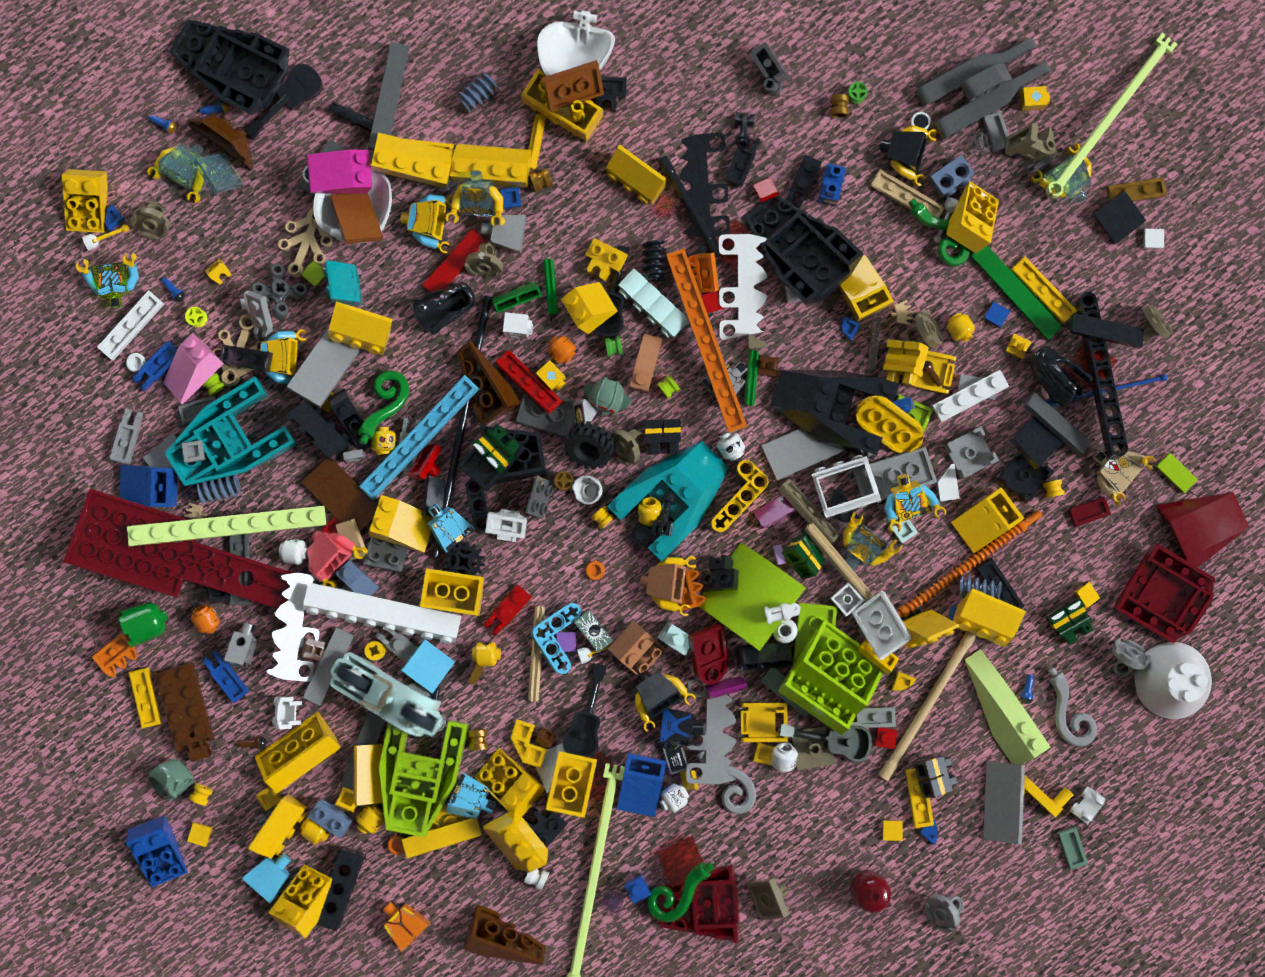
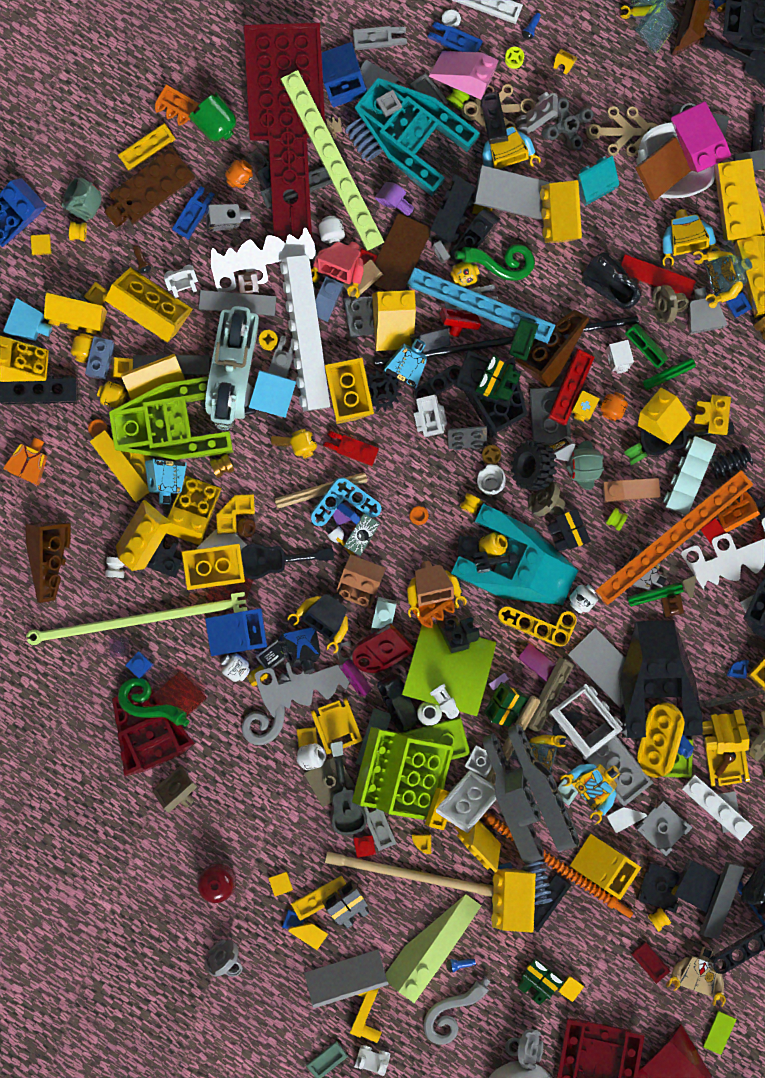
camera: 70 degrees right, 0 degrees up
(283, 482) = (392, 196): none -> medium lavender beam
(314, 274) = (596, 150): lime tile -> none
(466, 409) = (523, 339): none -> dark green tile
(568, 636) = (348, 513): none -> blue tile
(902, 579) = (518, 801): none -> dark grey beam
(949, 820) = (309, 934): none -> yellow tile

